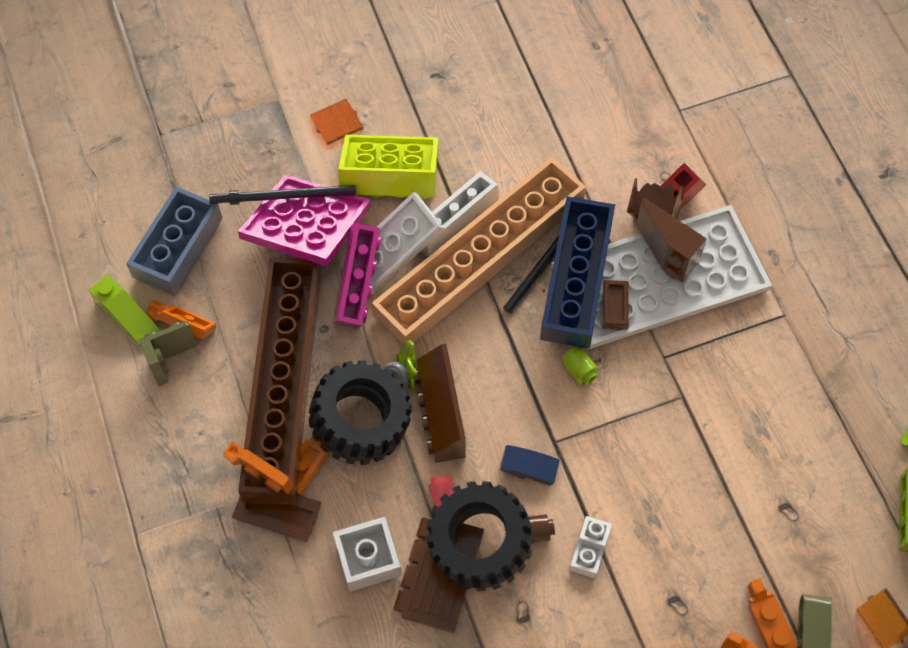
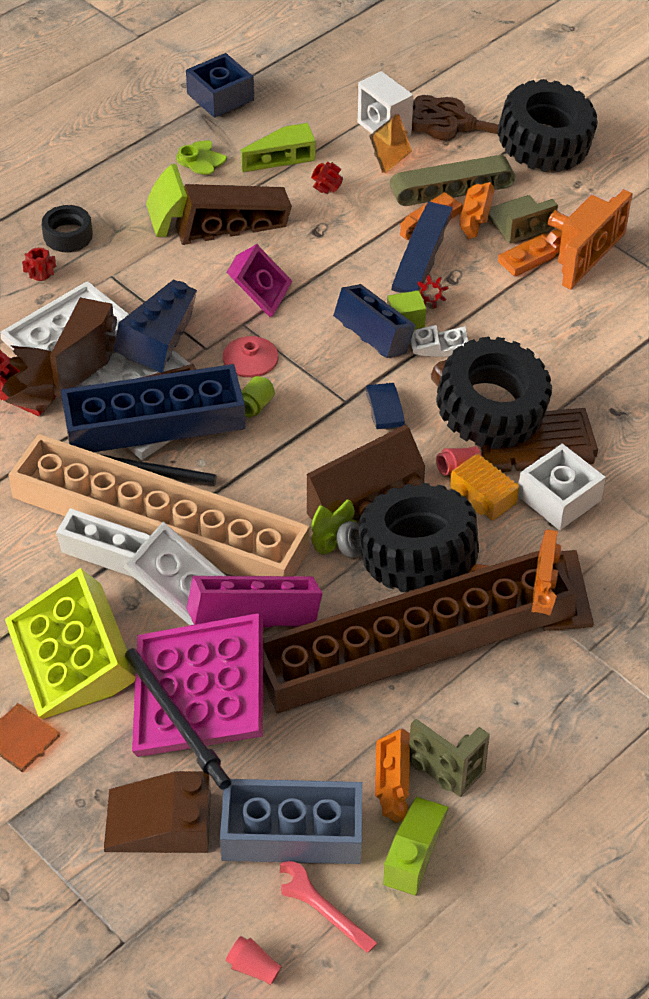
camera: 115 degrees left, 15 degrees down
(101, 190) = (252, 960): none -> coral cone
(130, 239) = (302, 889): none -> coral piece
(228, 170) = (160, 814): none -> reddish brown slope
(402, 497) = (484, 487): none -> light orange brick
(628, 491) = (374, 320): none -> dark blue brick
(635, 529) = (410, 306): none -> lime brick
(639, 398) = (251, 356): none -> coral dish
(652, 563) = (436, 284): none -> red gear
(682, 311) = (156, 326): none -> dark blue wedge
(716, 582) = (422, 247): none -> dark blue slope
(721, 418) = (260, 278): none -> dark pink slope
(810, 257) = (39, 264): none -> red gear
(827, 432) = (231, 210): none -> reddish brown wedge
(852, 538) = (327, 177): none -> red gear
(855, 377) = (166, 200): none -> lime slope
(860, 278) = (62, 216): none -> black tyre

